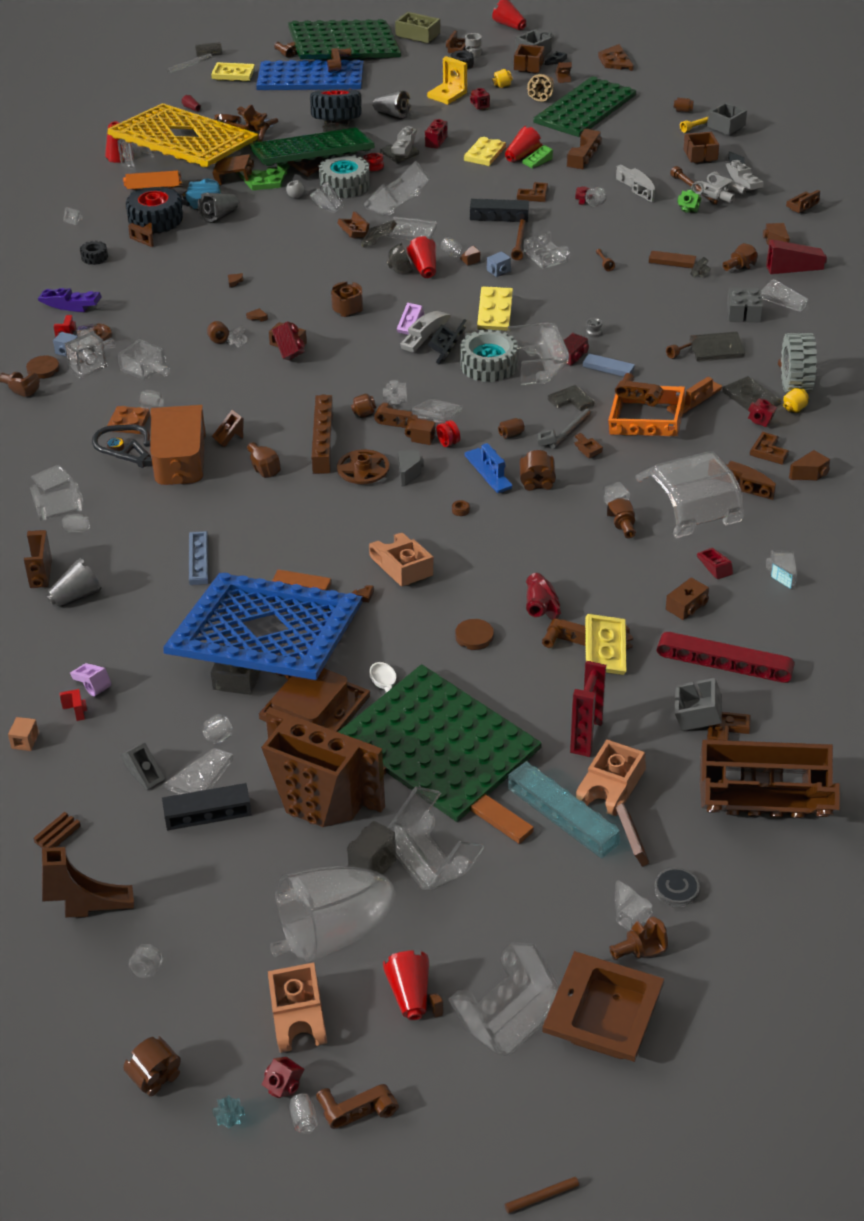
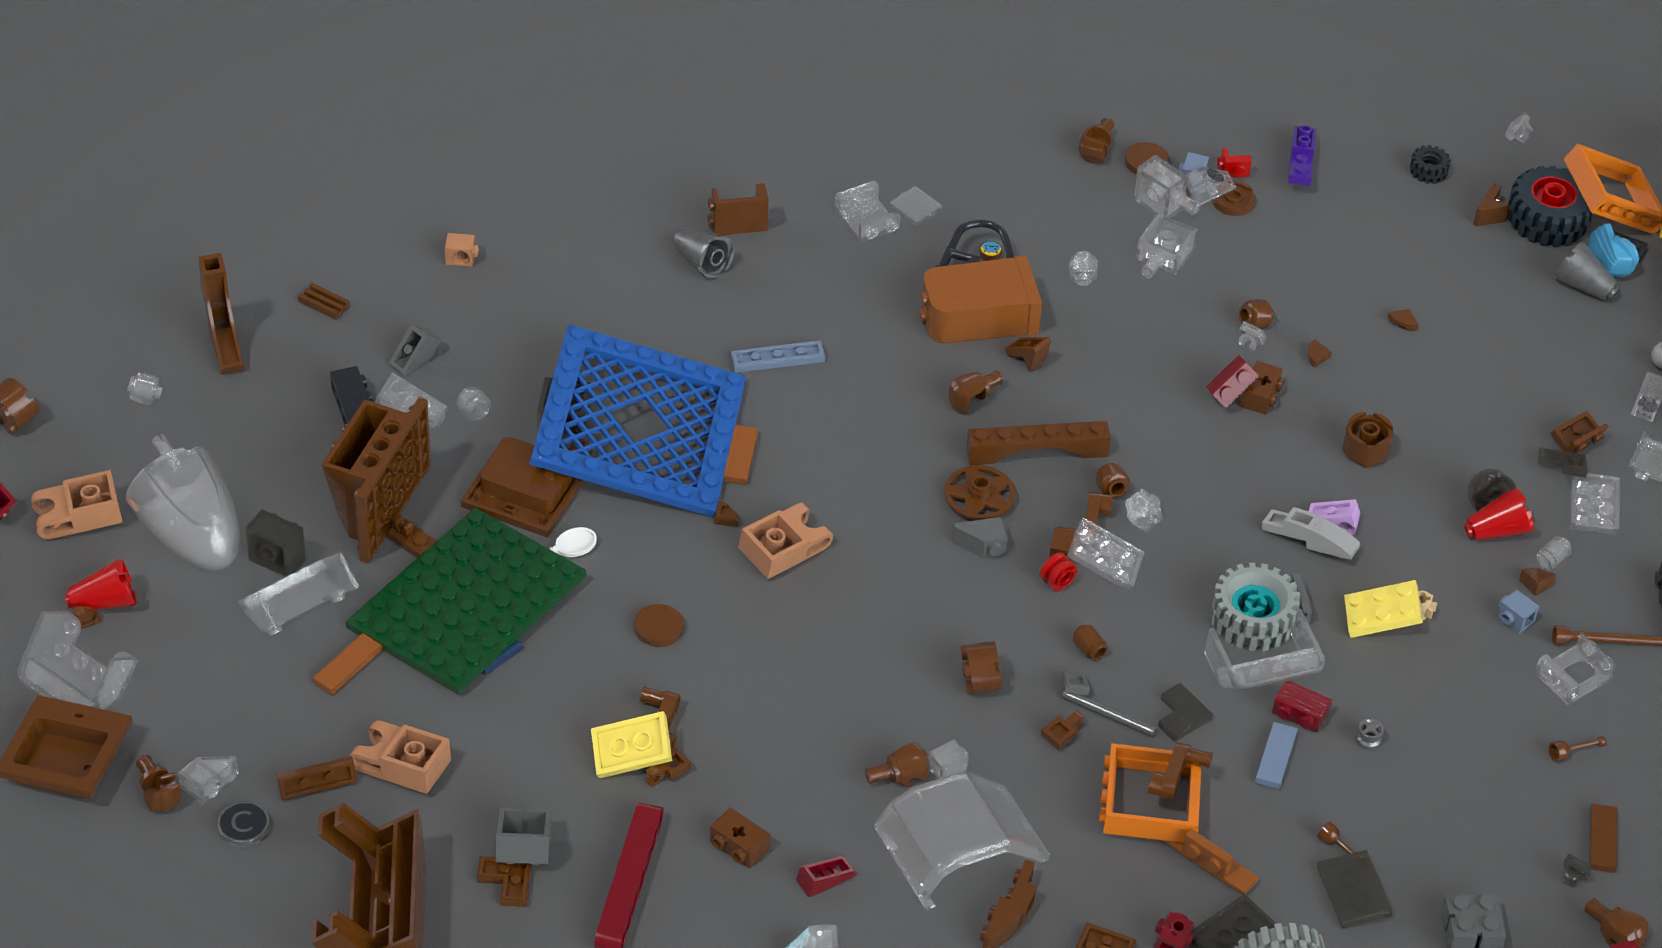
camera: 80 degrees right, 5 degrees up
(73, 699) = (508, 284): red bracket -> none
(76, 523) = (822, 236): clear brick -> none
(93, 677) = (546, 289): lavender plate -> none
(129, 415) = (1047, 255): dark orange plate -> none
(444, 338) = (1294, 557): black bracket -> none
(460, 508) = (909, 600): reddish brown tile -> none
(490, 466) = (994, 622): blue bracket -> none
(541, 597) = (720, 680): dark red animal -> none
(564, 809) = (357, 713): clear light blue brick -> none
(588, 708) = (463, 715): dark red fence -> none

